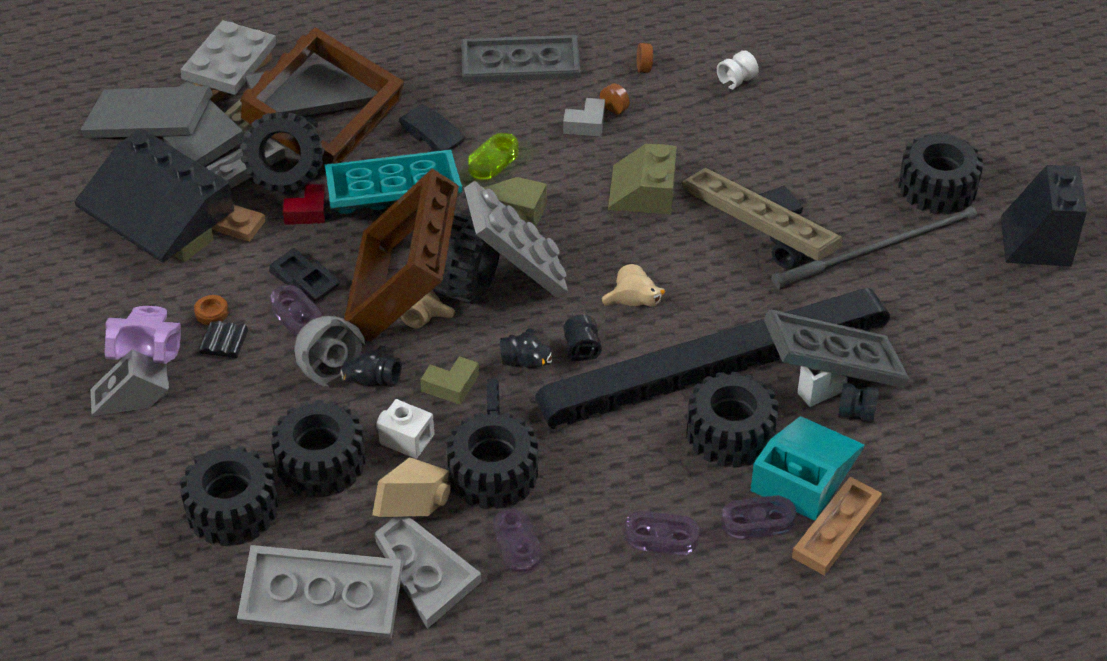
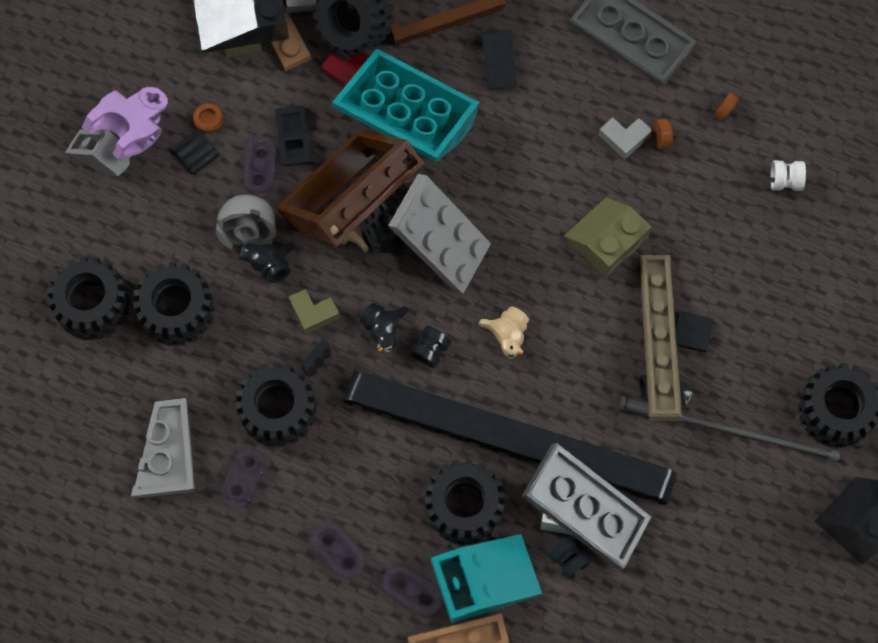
camera: 40 degrees right, 25 degrees up
(320, 591) = (85, 421): light grey plate -> none
(405, 428) = (245, 330): white brick -> none
(411, 490) = (201, 389): tan slope -> none
(488, 160) = (519, 119): clear neon green plate -> none
(524, 195) = (494, 182): olive slope -> none

